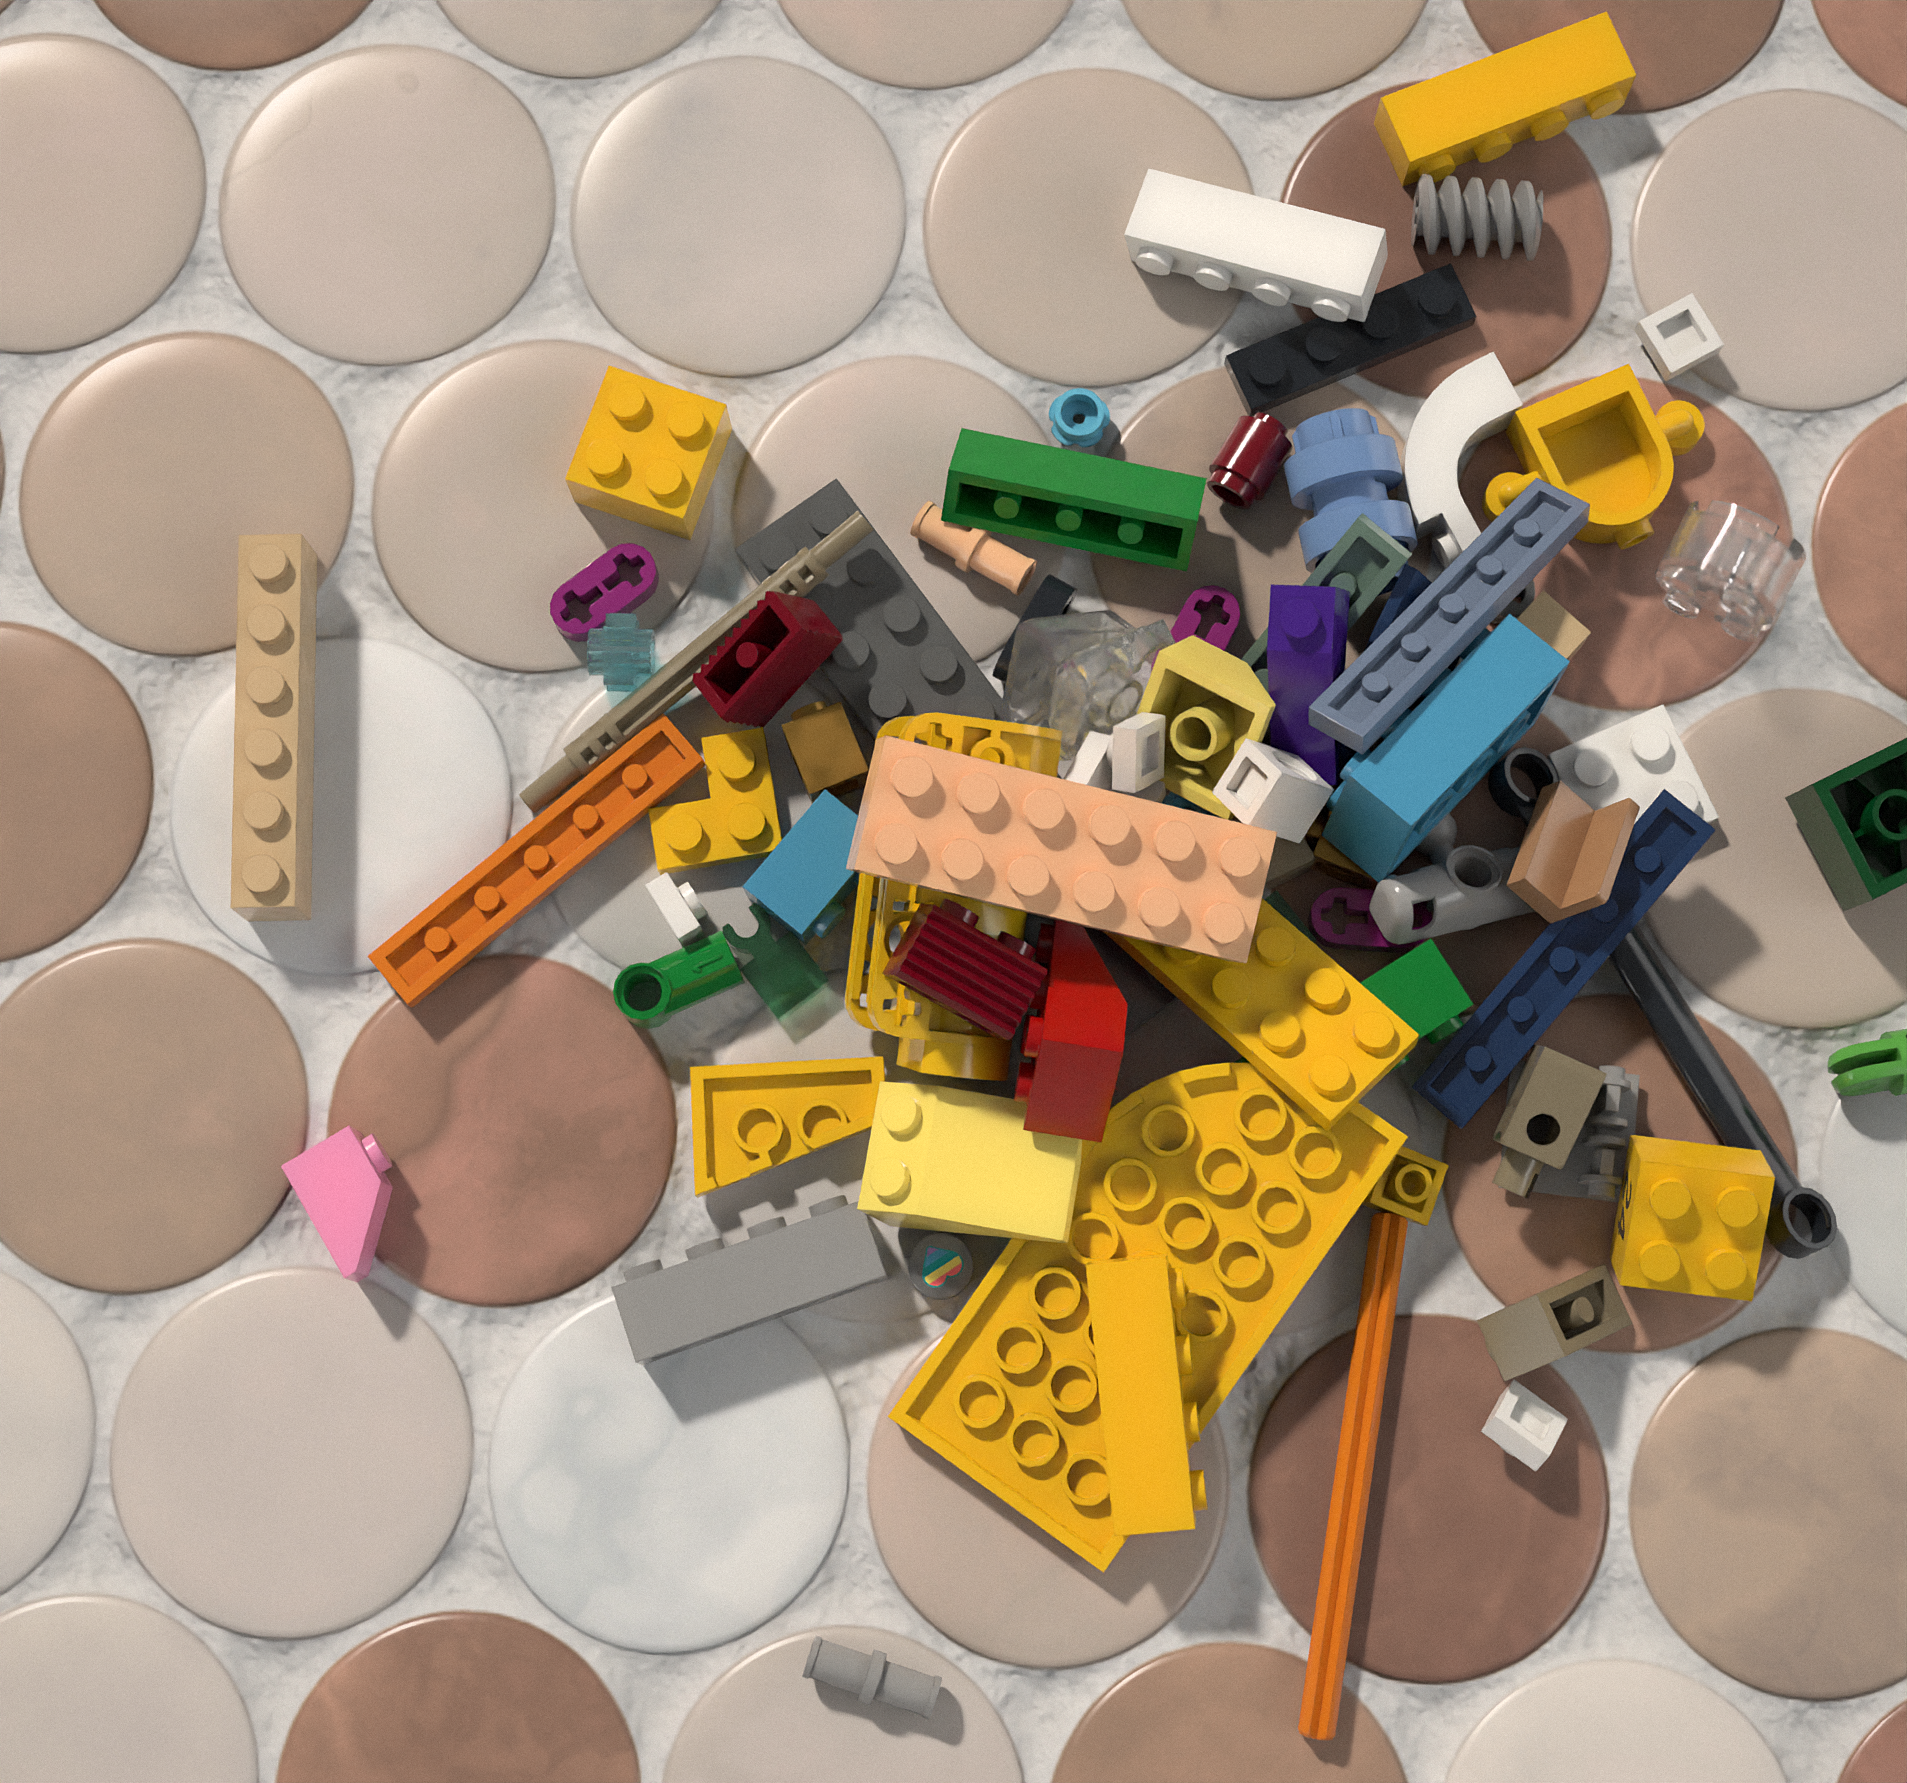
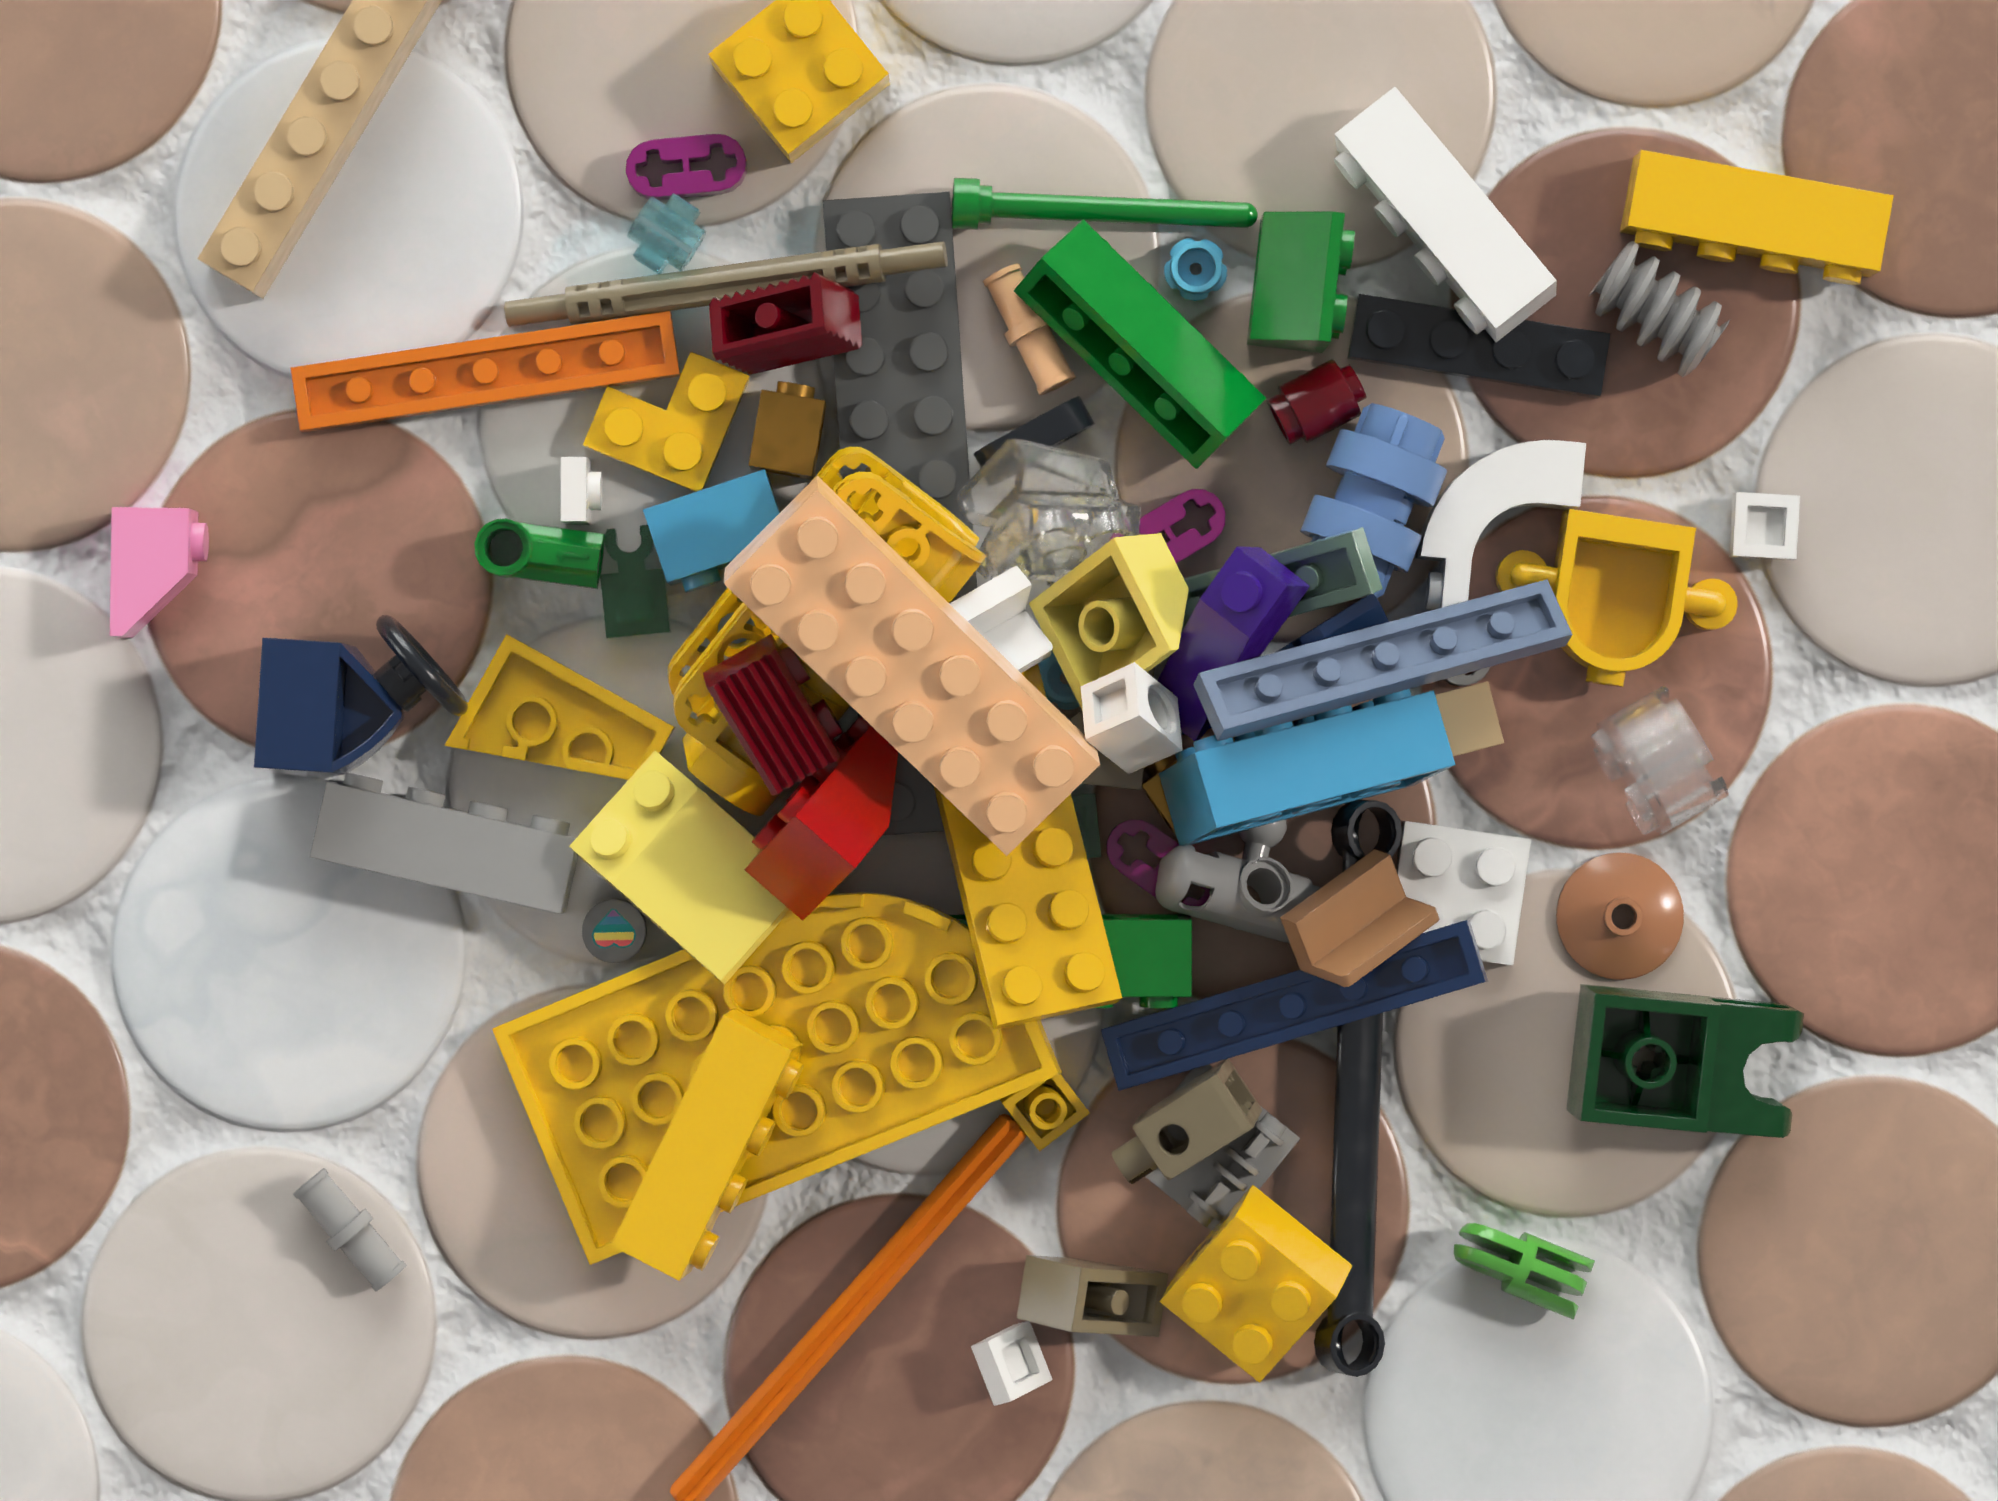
camera: 30 degrees right, 10 degrees up
(576, 1221) = (330, 707): none -> dark blue piece
(867, 473) = (978, 204): none -> green piece
(1137, 752) = (1042, 610): white plate -> none
(1172, 367) = (1297, 280): none -> green slope
(1759, 748) = (1587, 908): none -> nougat dish

